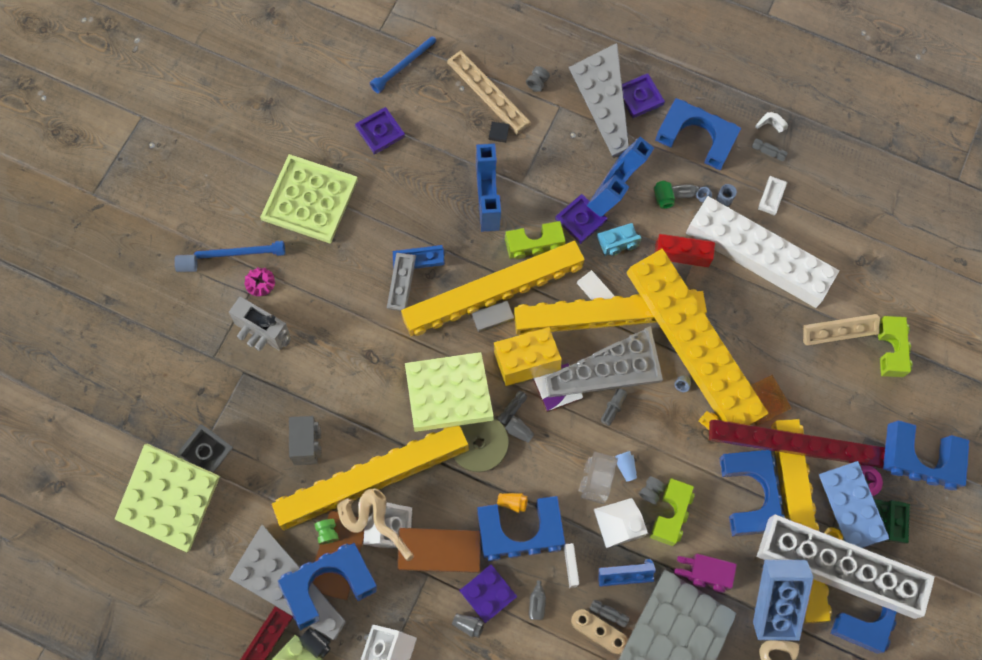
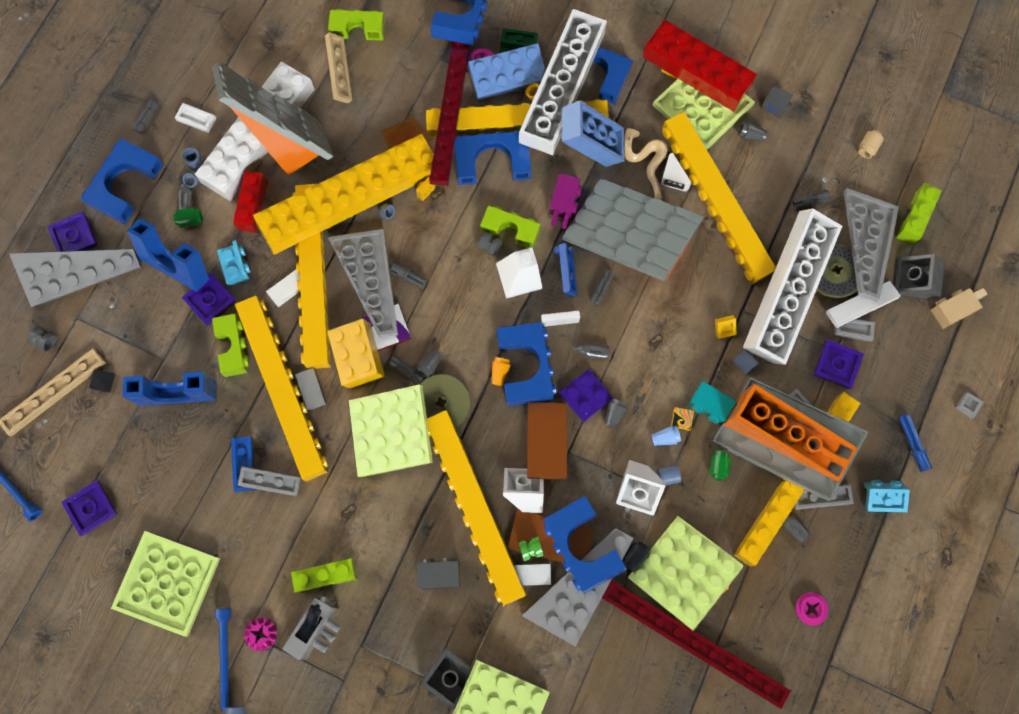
camera: 85 degrees left, 5 degrees up
(303, 536) = (534, 574): none -> white tile
(309, 335) = (324, 575): none -> lime arch
(379, 503) = (501, 496): tan animal -> none
(589, 629) = (615, 303): tan plate -> none
(599, 477) = (479, 289): clear brick -> none
(627, 465) = (465, 265): light blue cone -> none
(764, 265) = (284, 130): none -> light grey piece
(773, 119) = (113, 108): white hair -> none

